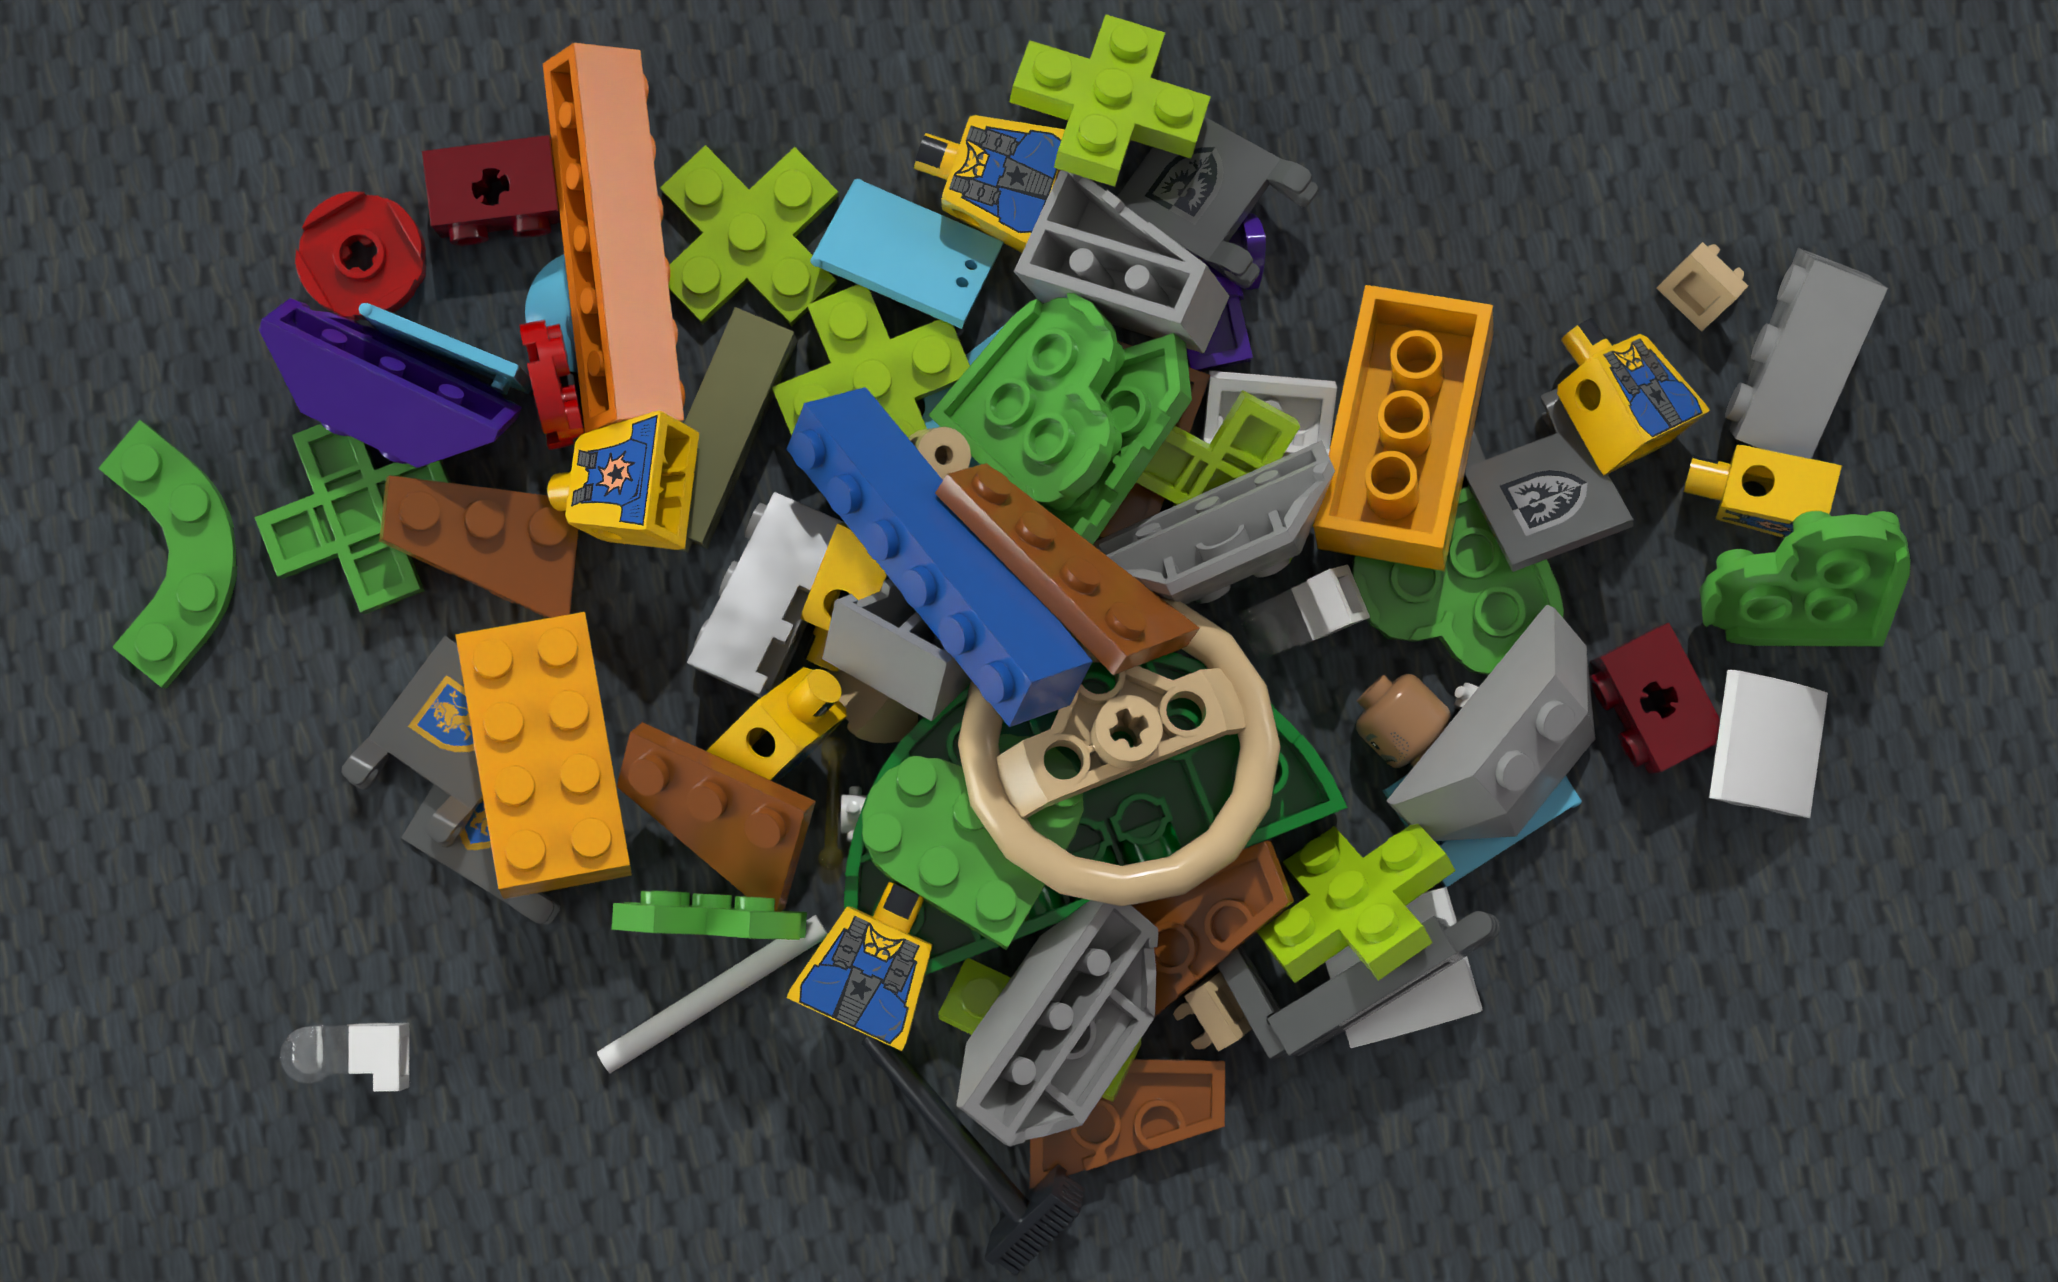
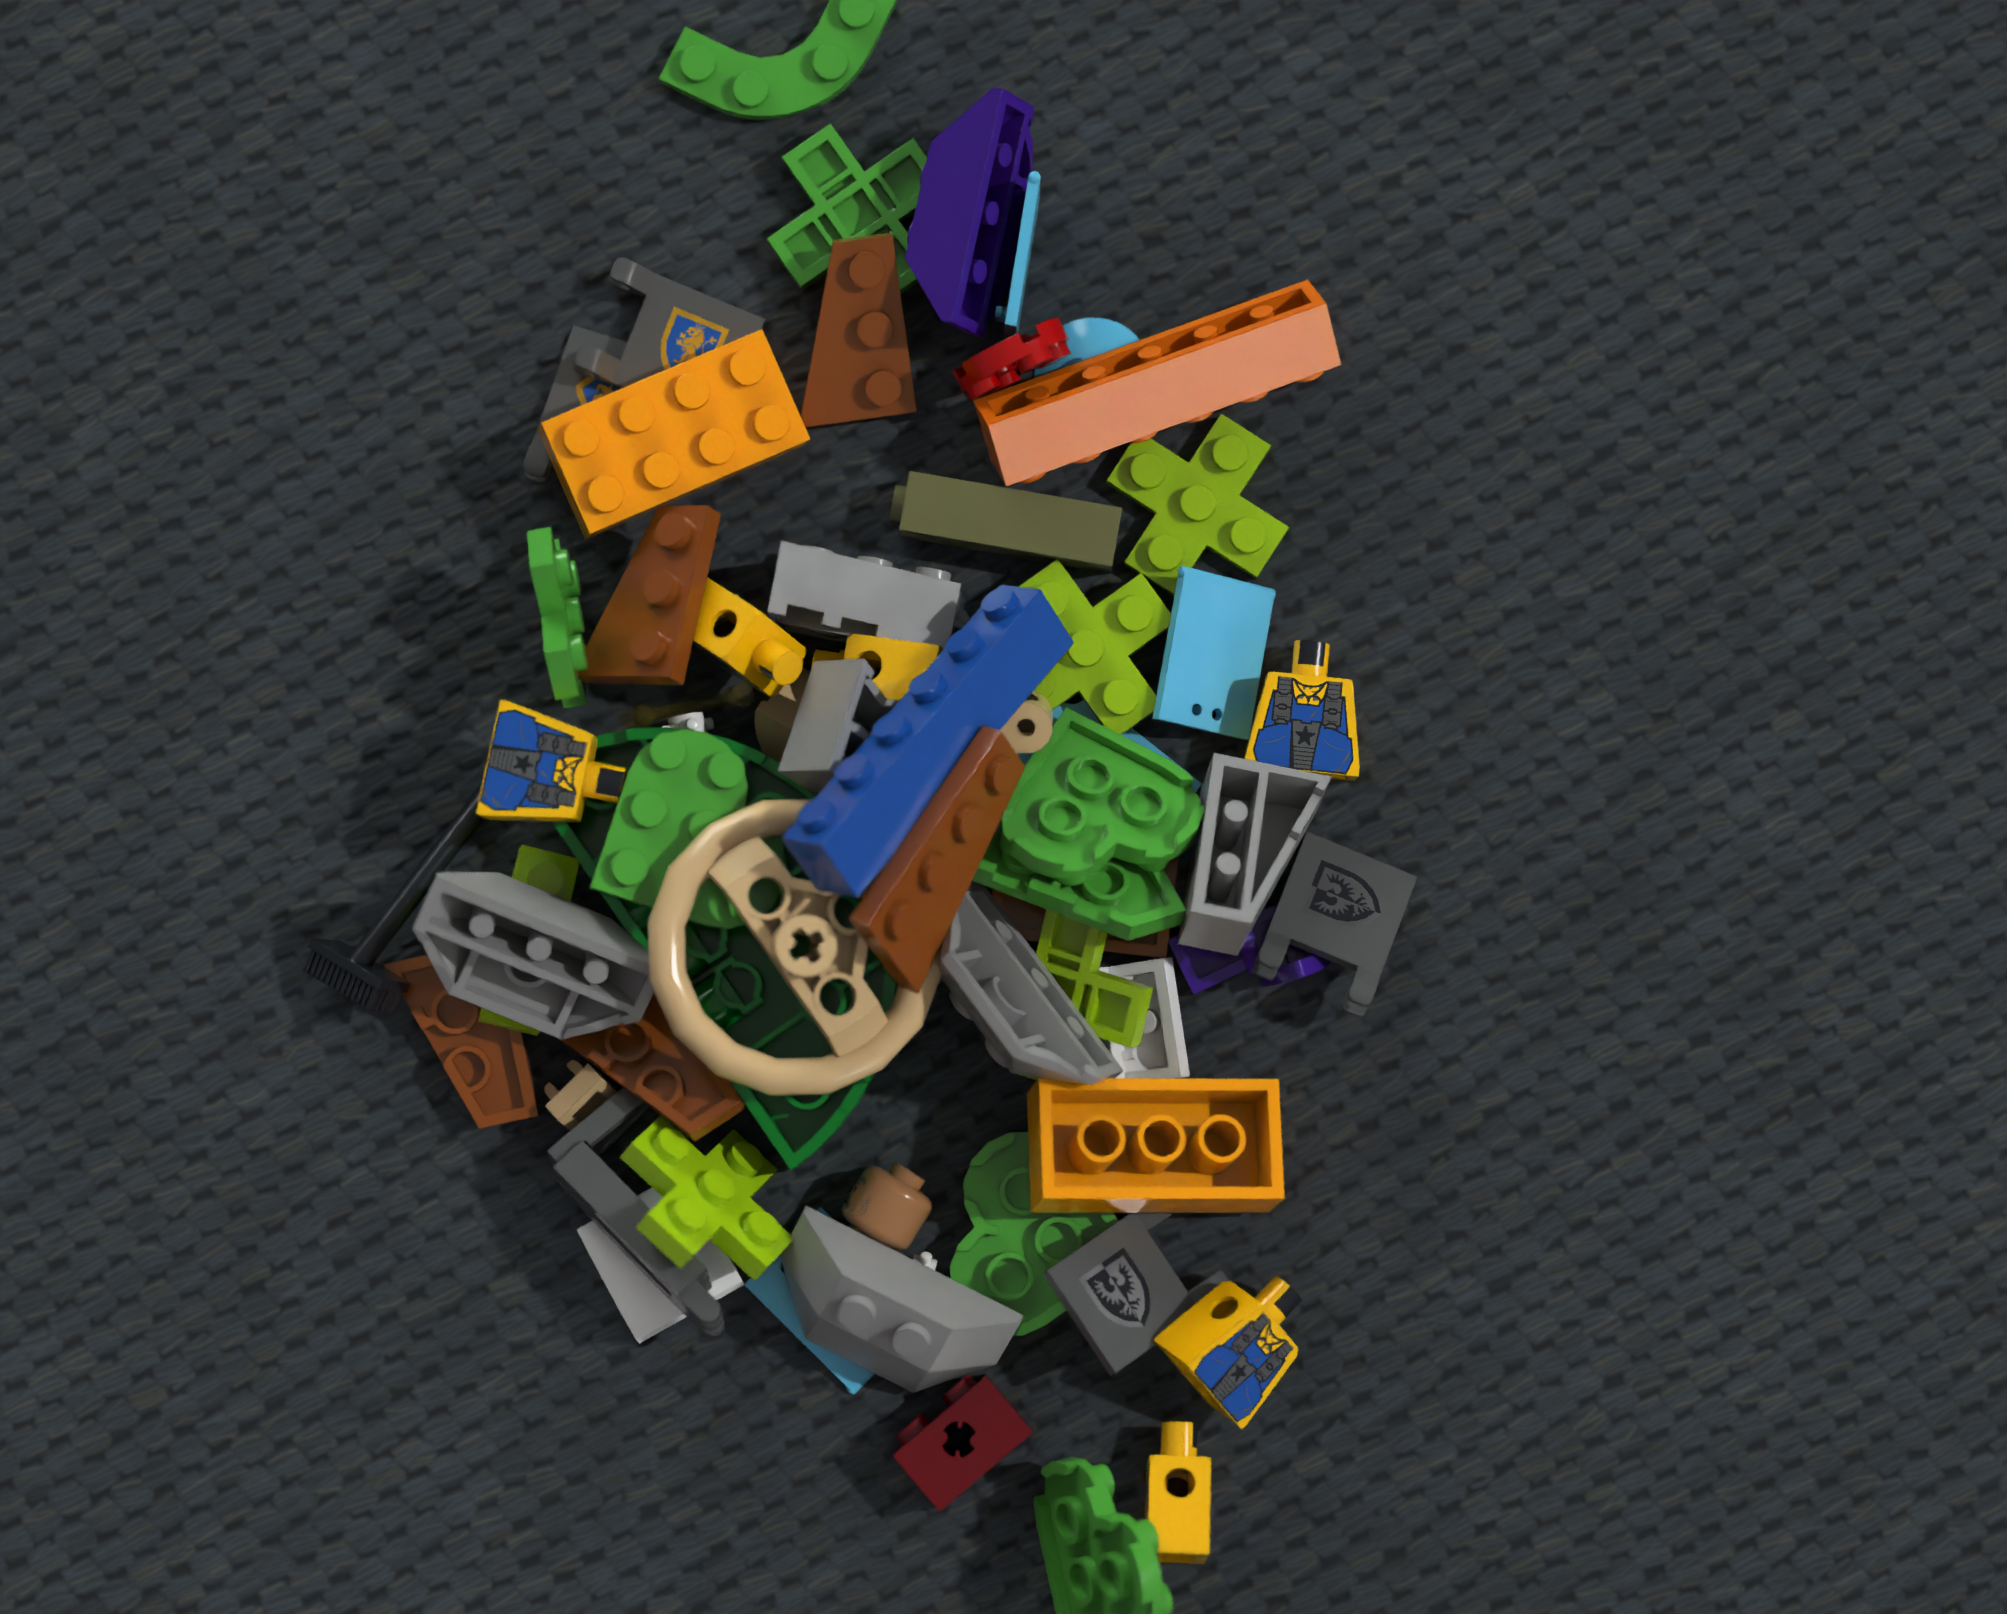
camera: 85 degrees right, 0 degrees up
(333, 1049) = (372, 325): leg -> none
(373, 221) = (1093, 125): red plate -> none
(464, 174) = (1183, 230): dark red brick -> none
(631, 482) = (936, 452): yellow torso -> none
(708, 997) = (491, 634): white bar -> none
(1109, 100) = (1399, 805): lime plate -> none
(1304, 613) = (964, 1095): leg -> none
(1703, 286) = (1361, 1399): tan tile -> none
(1768, 744) = (942, 1552): white slope -> none
(1804, 355) = (1316, 1507): light grey wedge -> none

